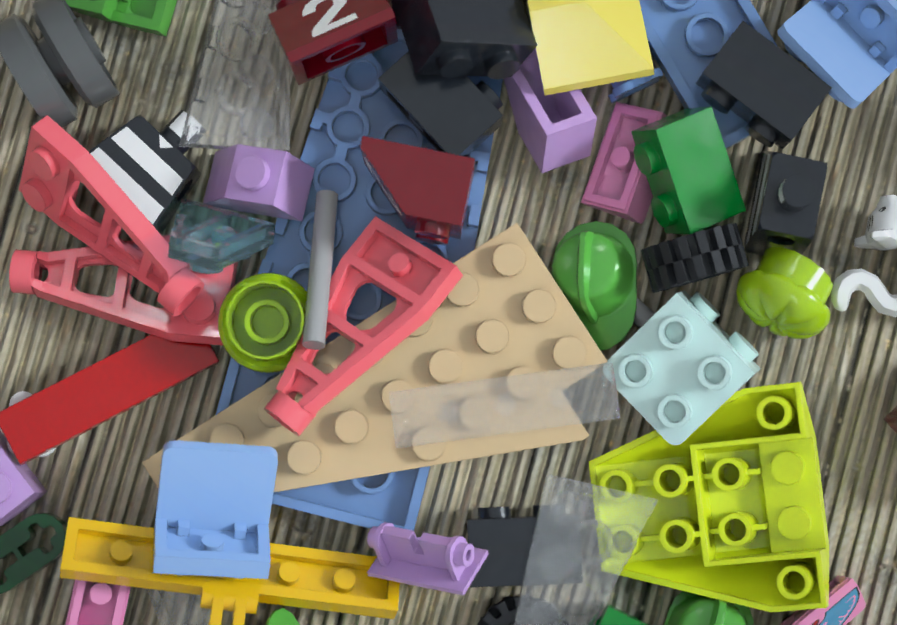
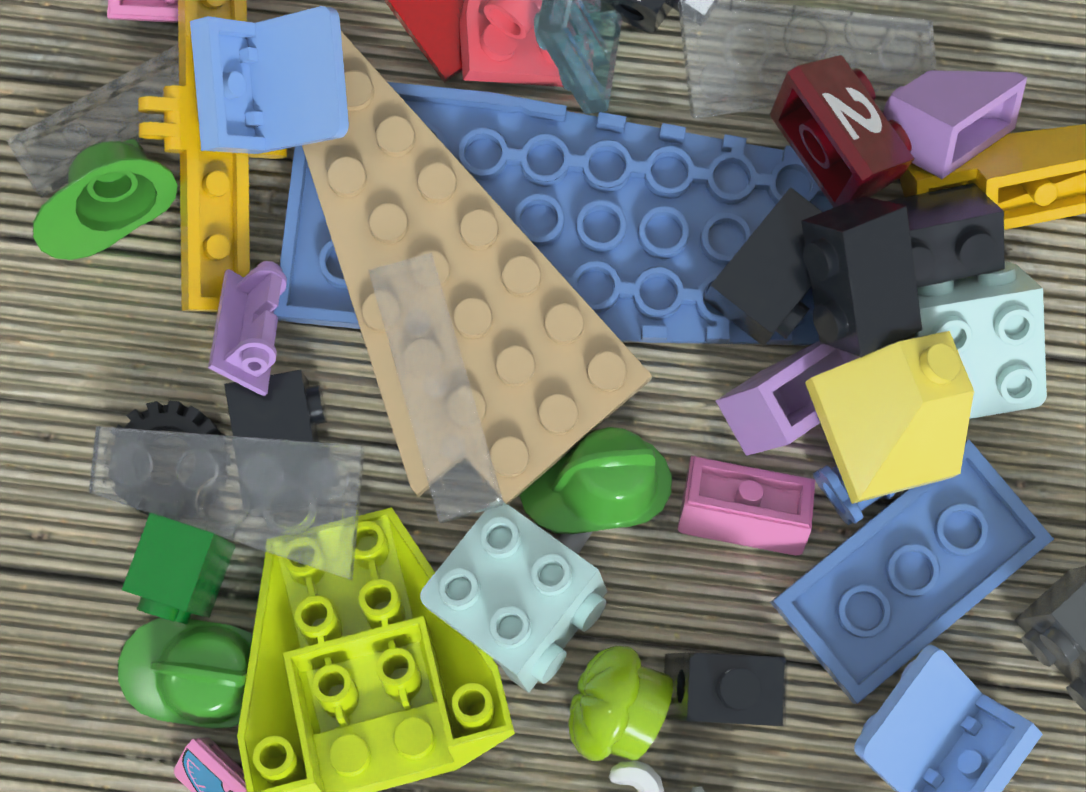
camera: 80 degrees right, 5 degrees down
(259, 182) = (651, 90): lavender slope -> none
(263, 321) = (493, 114): lime piece -> none
(320, 270) = (560, 159): light grey bar -> none
(395, 265) = (584, 227): coral plate -> none
(422, 186) = (671, 255): dark red slope -> none
(687, 171) = (745, 566): green brick -> none
(694, 257) = (645, 588): black tyre -> none
(762, 87) = (861, 637): black brick -> none

